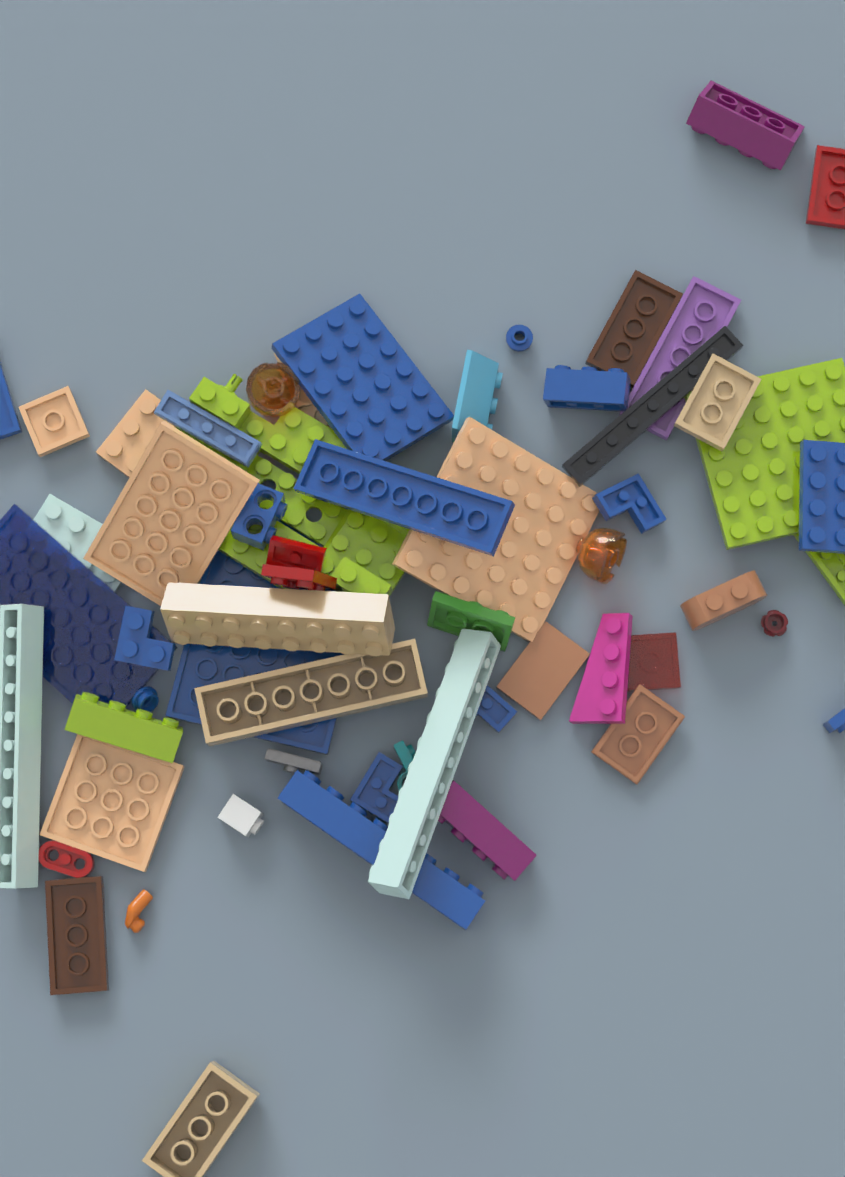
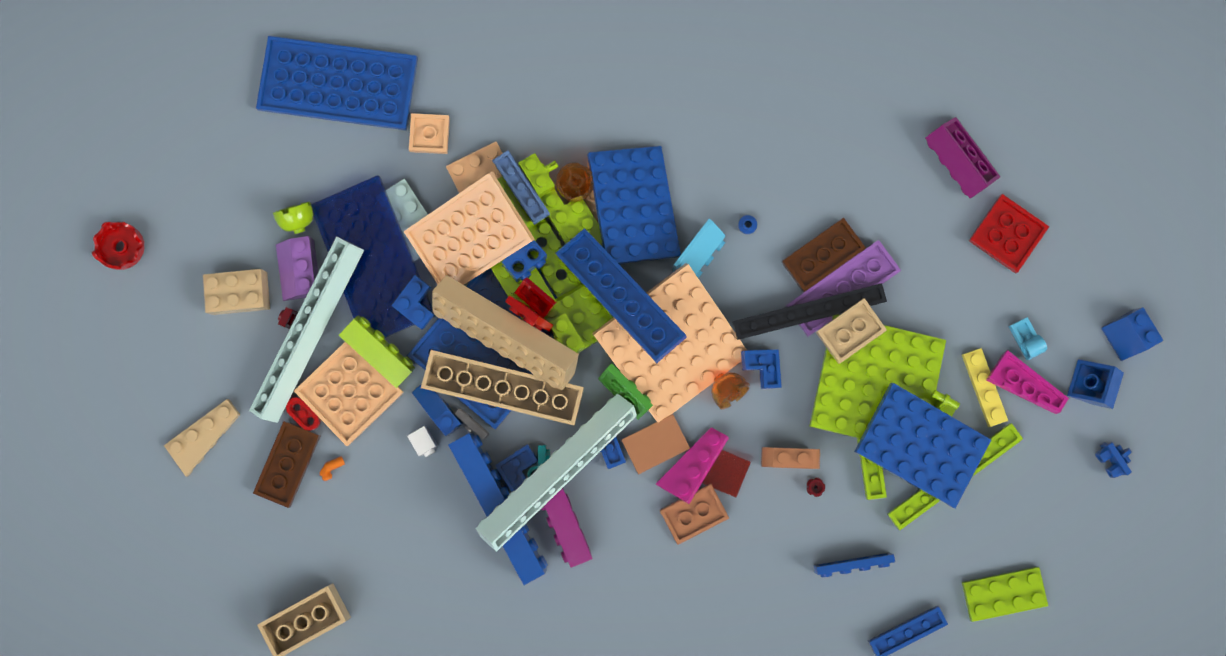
camera: 20 degrees right, 5 degrees up
(145, 699) = (399, 339): blue plate -> none
(239, 766) = (438, 410): none -> blue slope
(587, 388) = (773, 279): blue brick -> none

